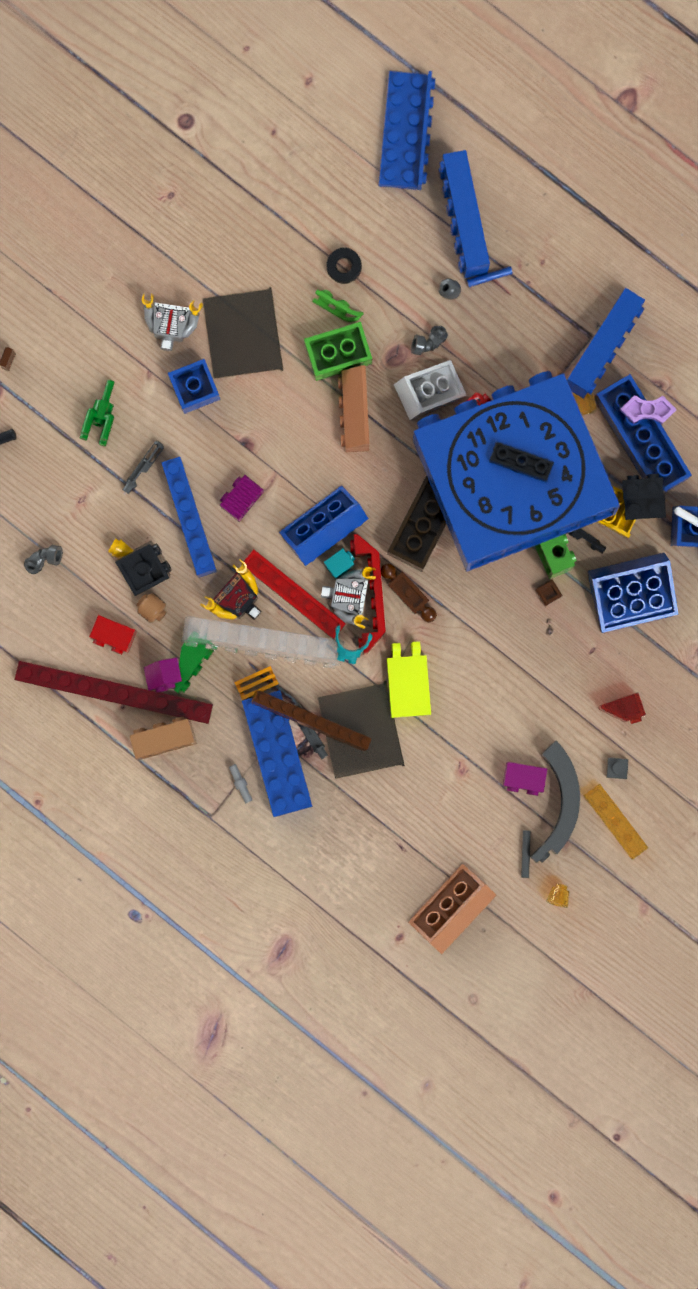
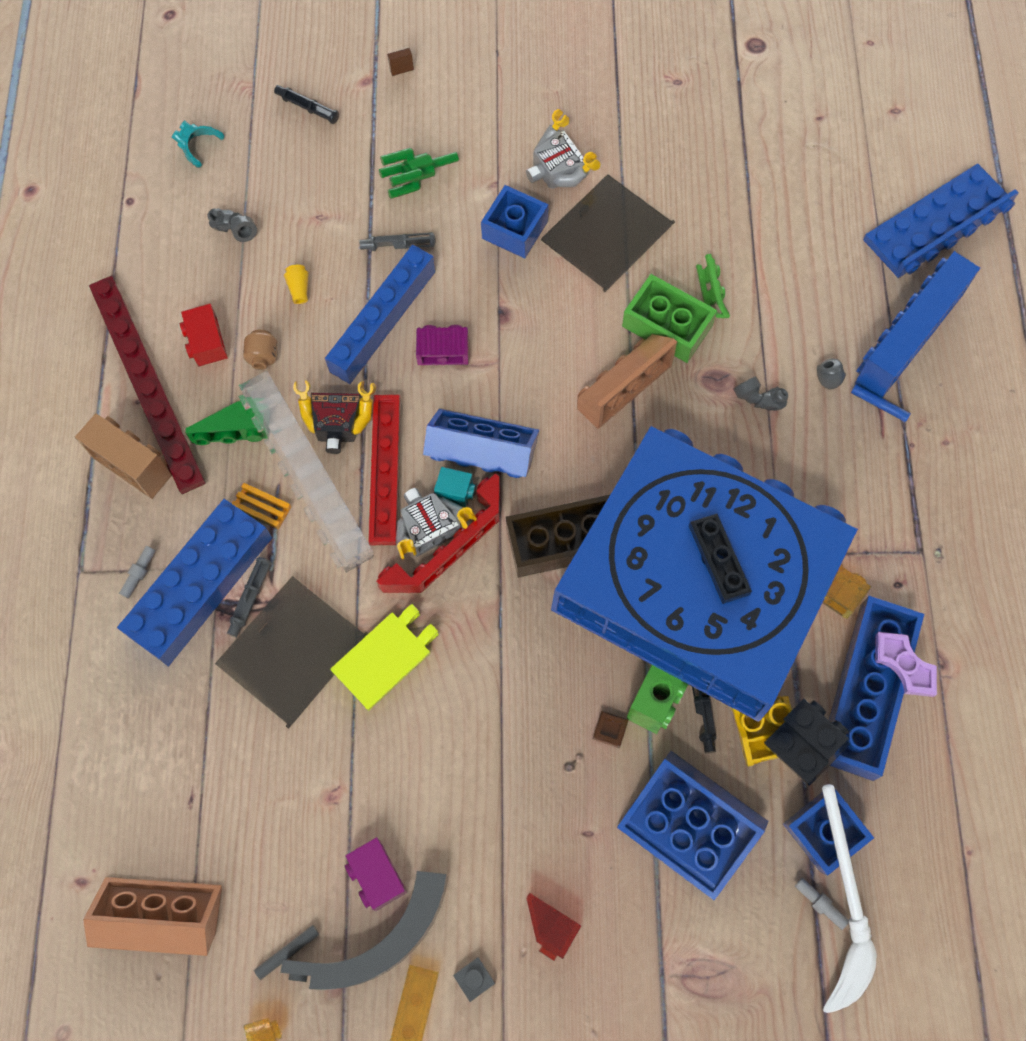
camera: 55 degrees right, 15 degrees down
(144, 568) = (294, 310): black plate -> none
(162, 675) = (193, 404): magenta brick -> none
(311, 720) = (255, 583): reddish brown piece -> none
(344, 253) = (761, 251): black tyre -> none
(350, 655) = (359, 561): teal helmet -> none
(408, 593) = (482, 580): reddish brown plate -> none
(429, 389) = (715, 428): white slope -> none
(604, 343) = (928, 563): blue brick -> none

